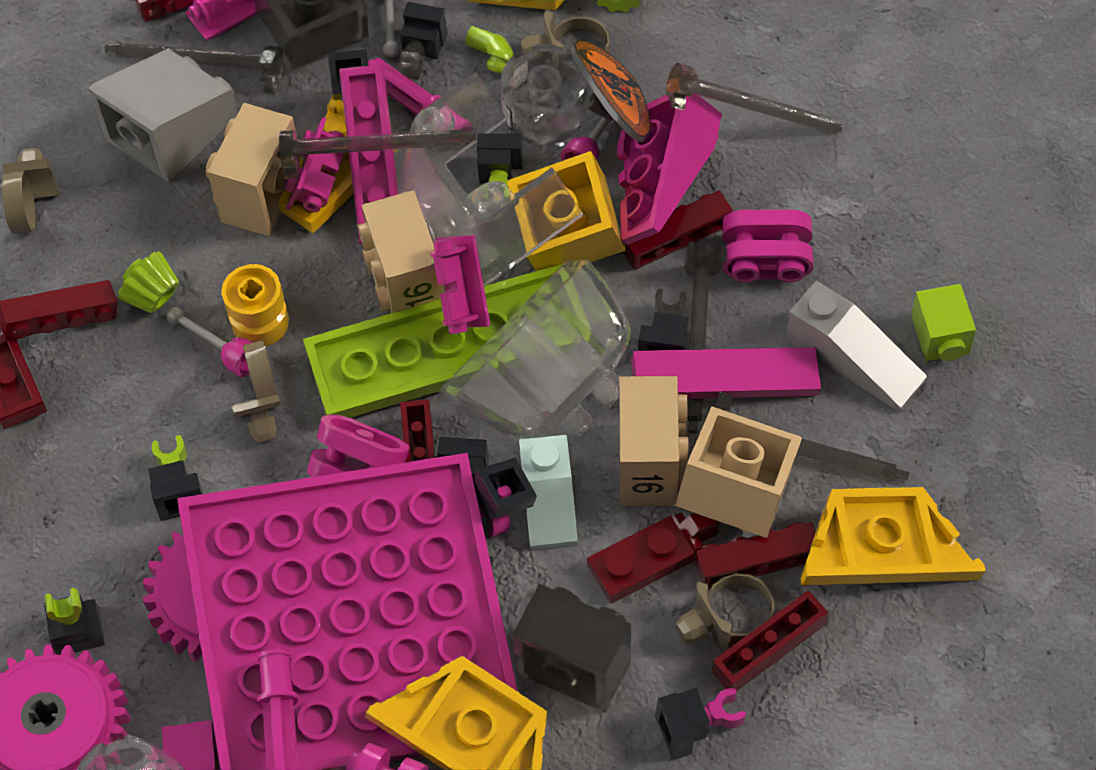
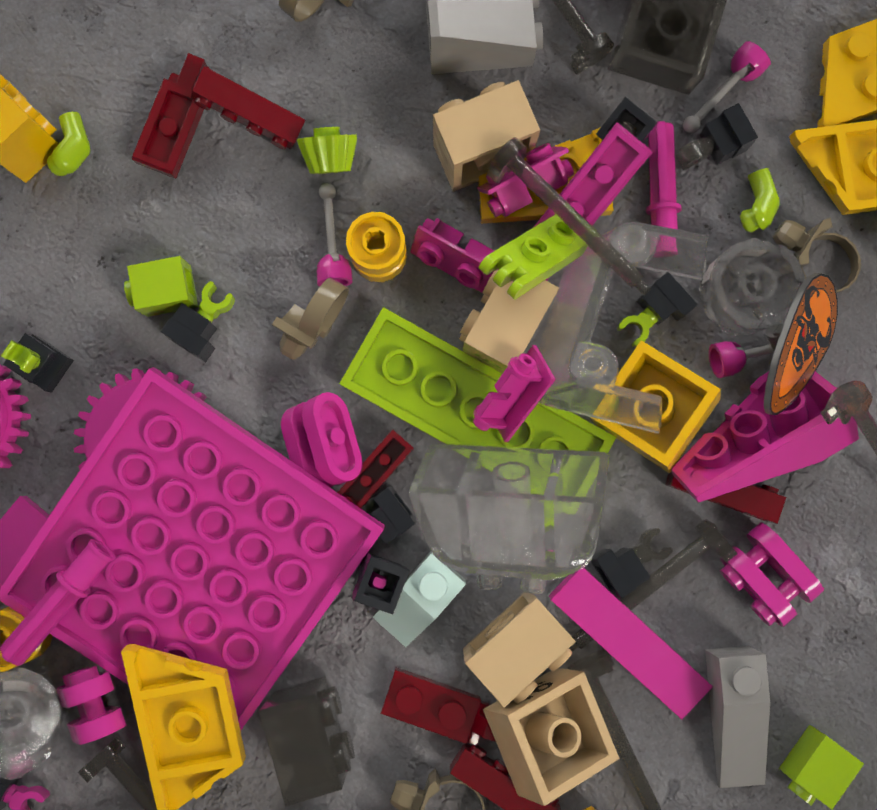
camera: 45 degrees right, 25 degrees up
(117, 481) = (160, 286): none -> lime brick
(320, 267) = (438, 247): none -> dark pink hinge
(375, 185) = (534, 256): none -> lime hinge

